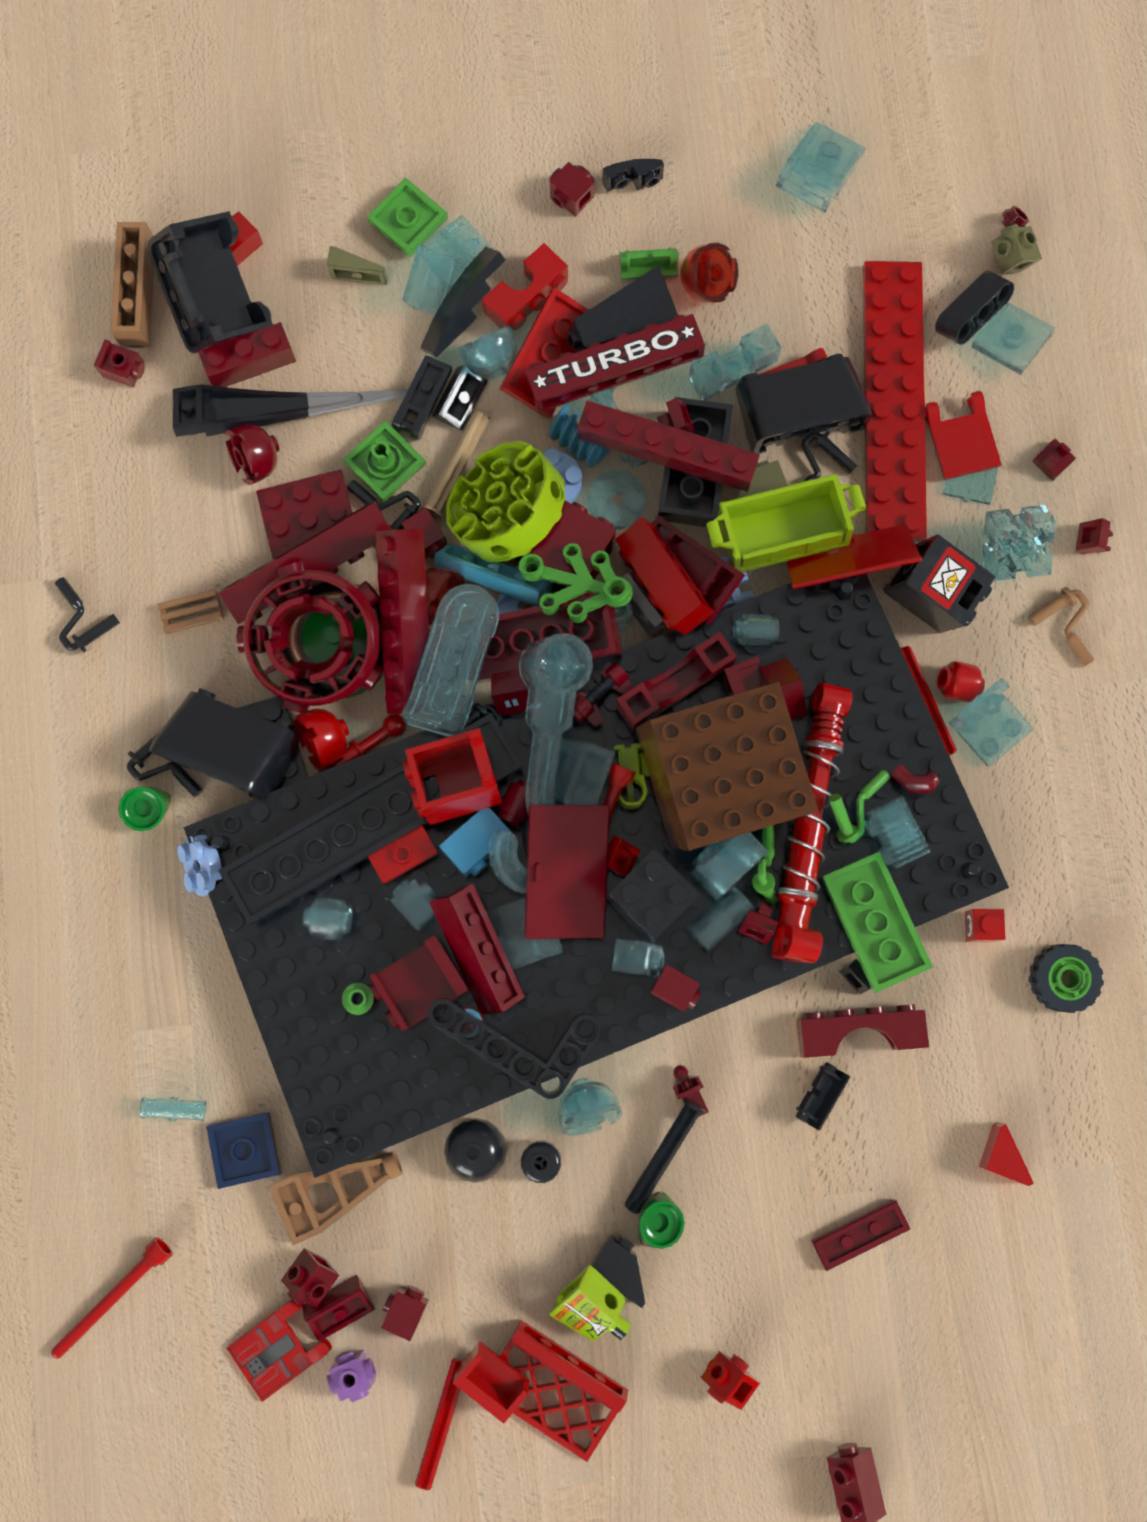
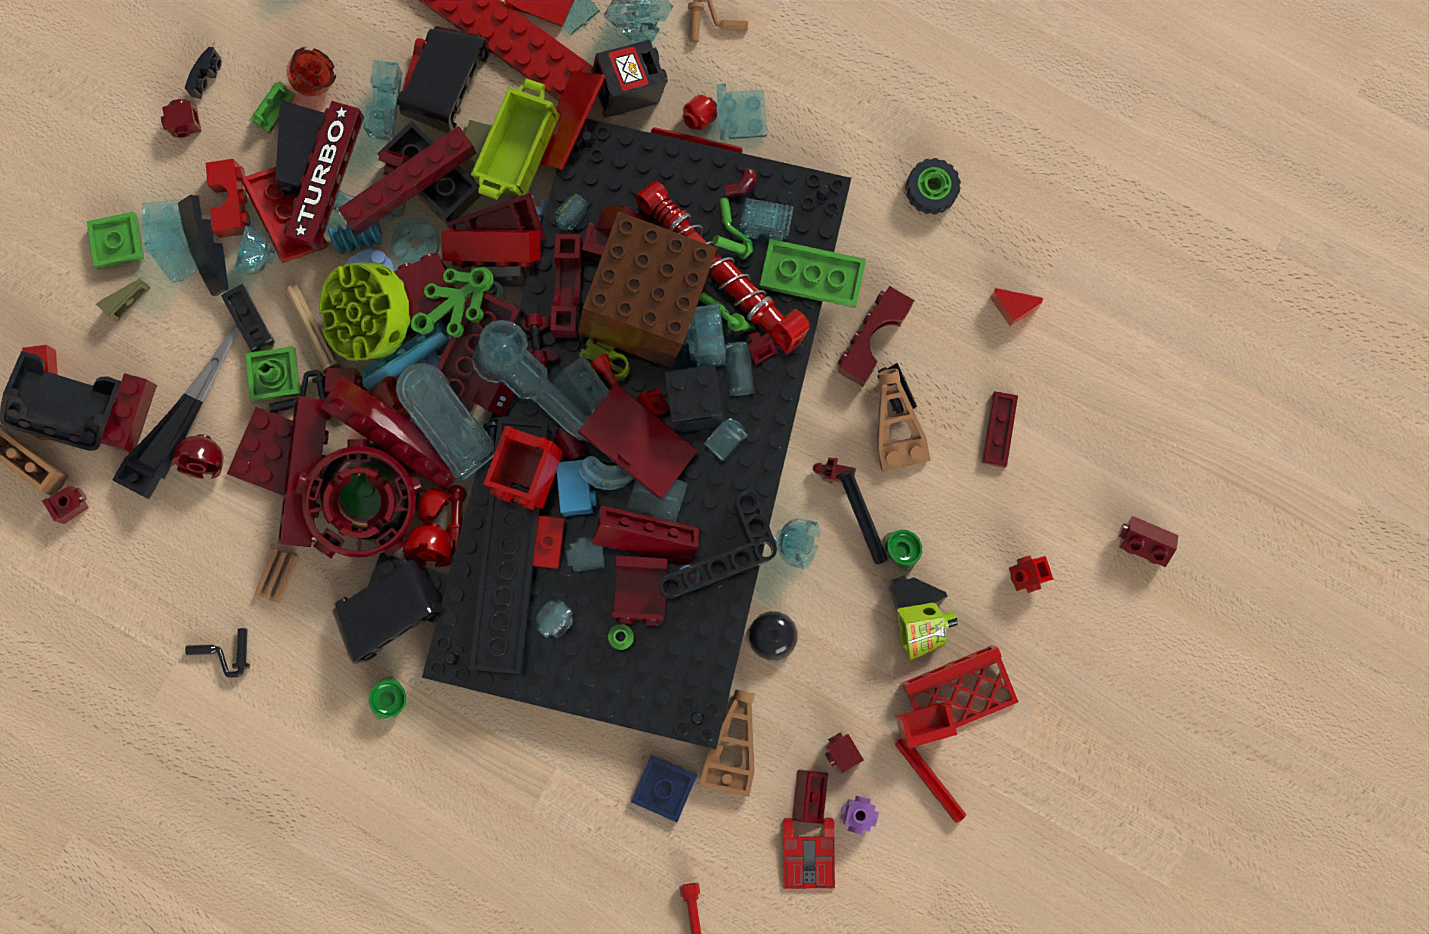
camera: 50 degrees left, 0 degrees up
(173, 1109) = (603, 816): clear light blue pin -> none
(177, 771) = (350, 678): black piece -> none
(209, 861) = (459, 675): light blue plate -> none
(309, 1278) = (778, 800): dark red brick -> none
(364, 709) = (432, 503): none -> red hair
(459, 397) = (267, 294): black slope -> none
(543, 1149) = (804, 603): black head -> none
(676, 989) = (763, 428): dark red brick -> none
(762, 1150) = (902, 452): none -> medium nougat plate
(830, 448) = (488, 82): black piece -> none
(855, 976) = (838, 313): black tile -> none
(985, 925) = (864, 211): red brick -> none

